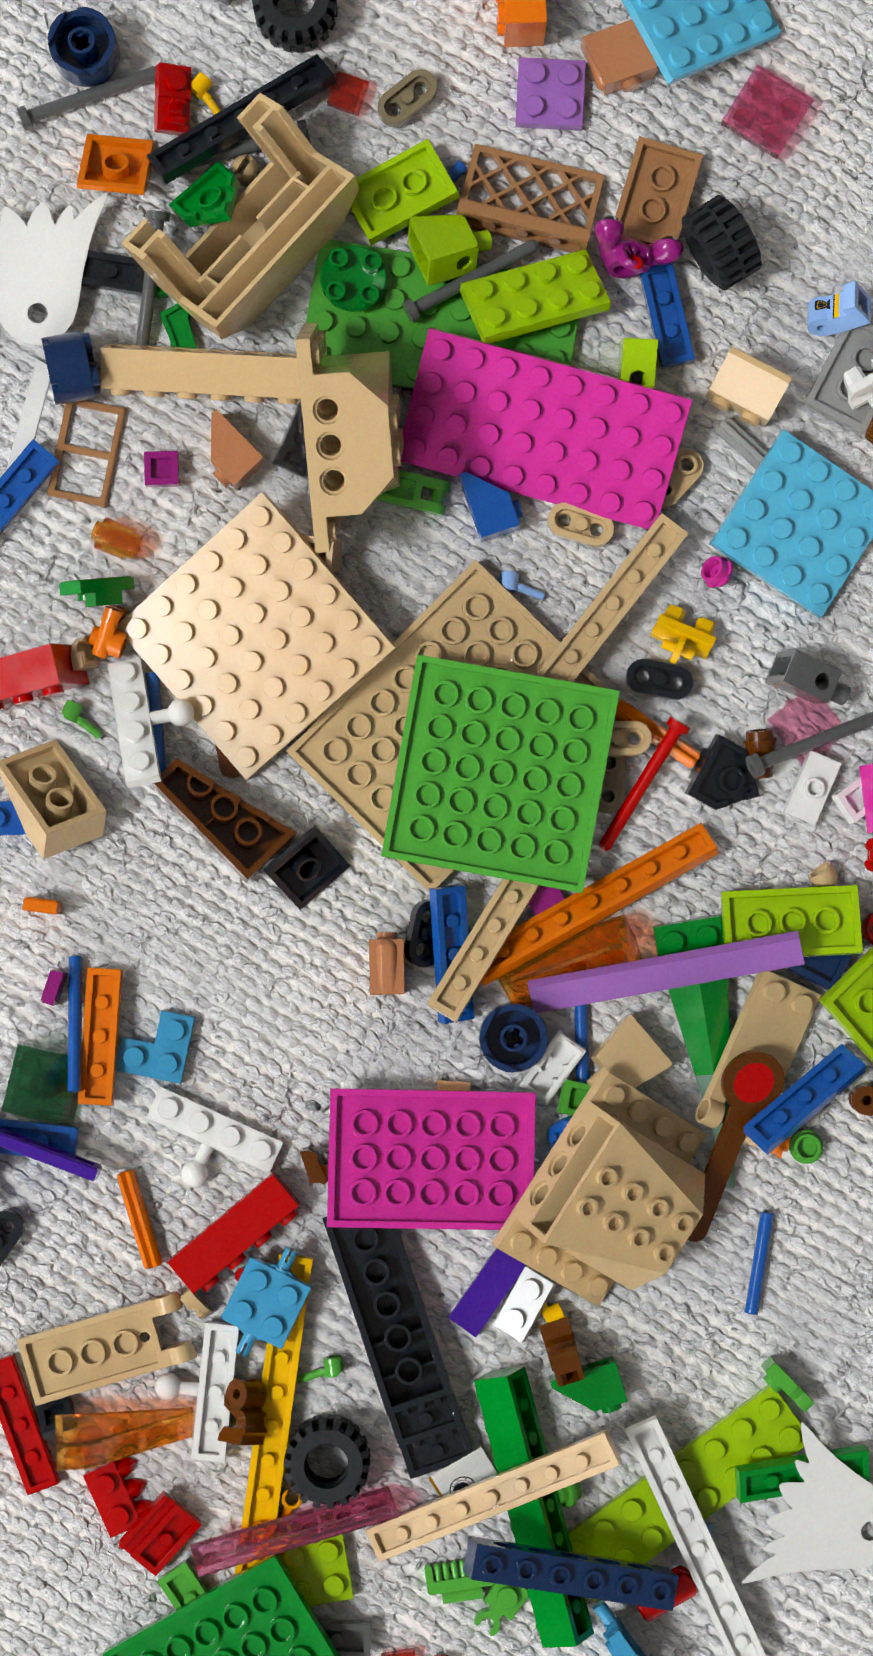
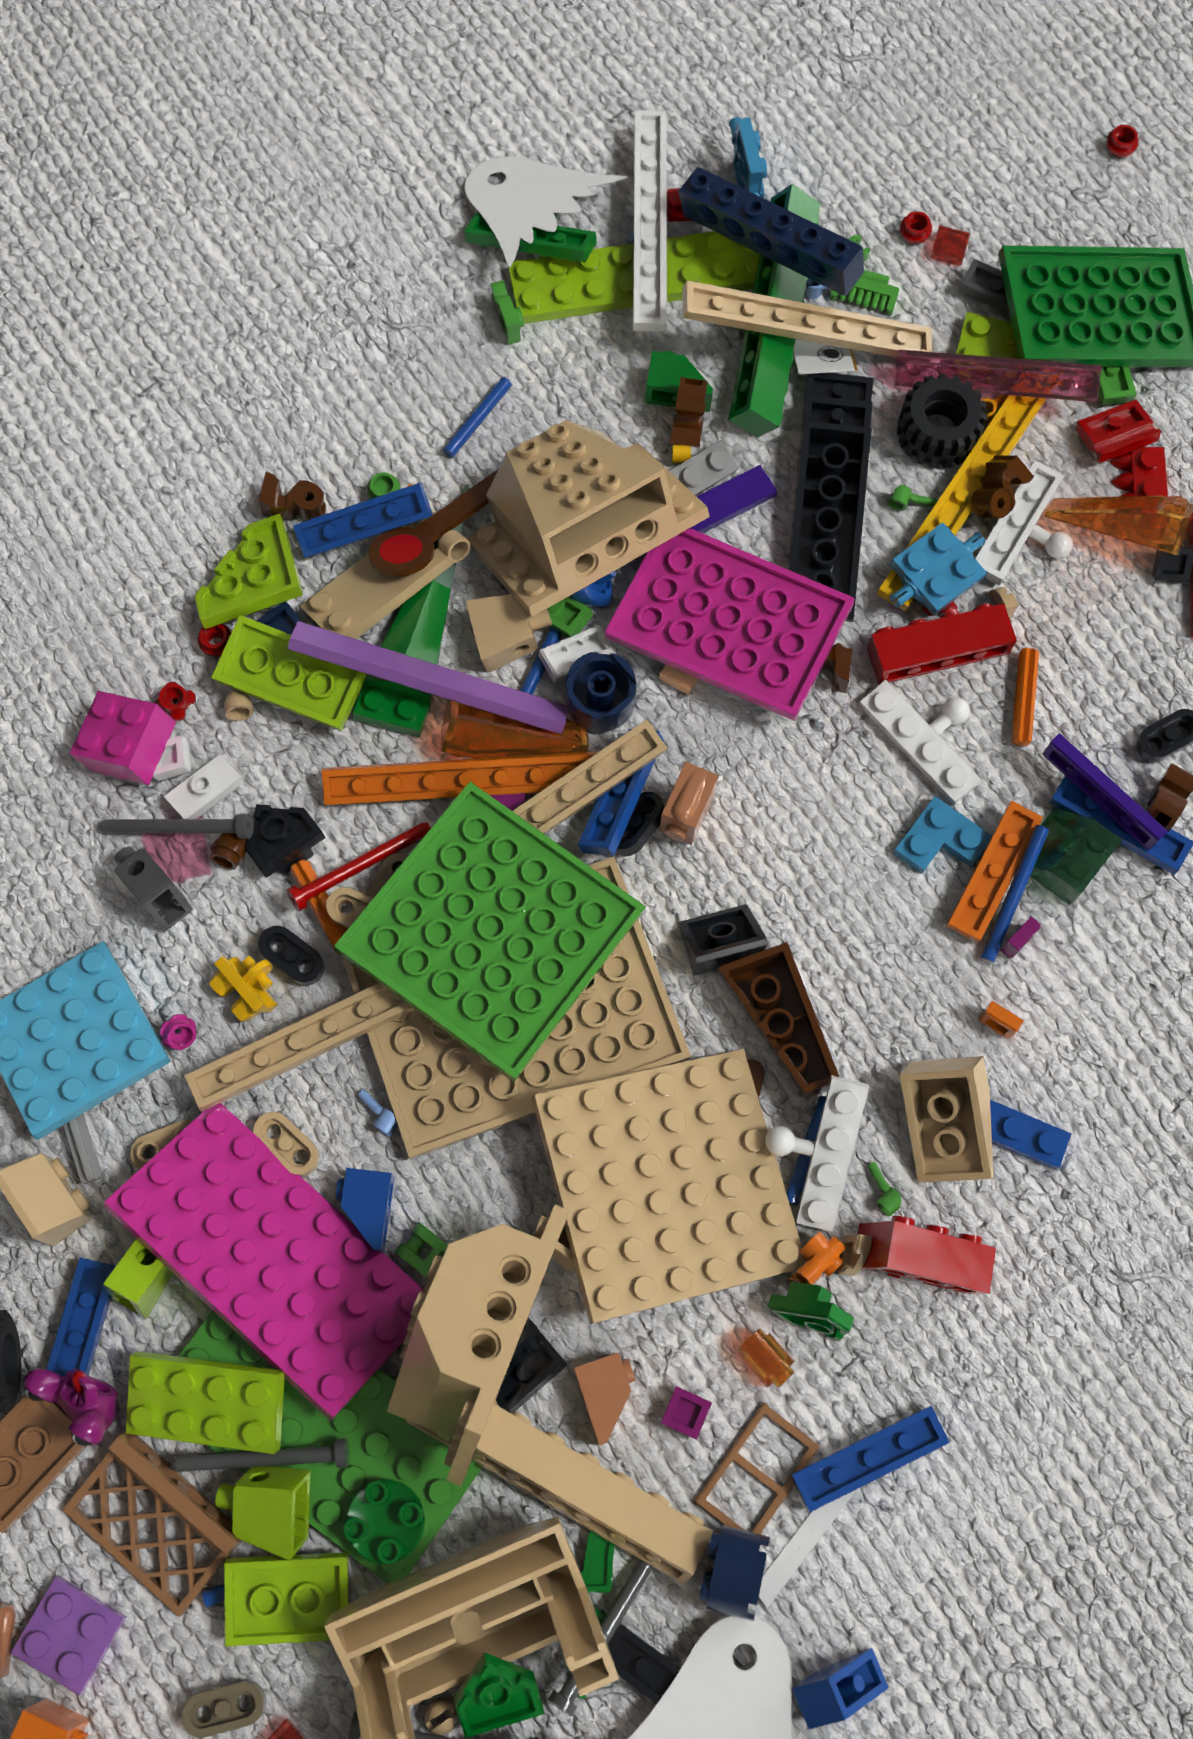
camera: 155 degrees left, 15 degrees down
(101, 1350) = (1106, 600): tan hinge -> none

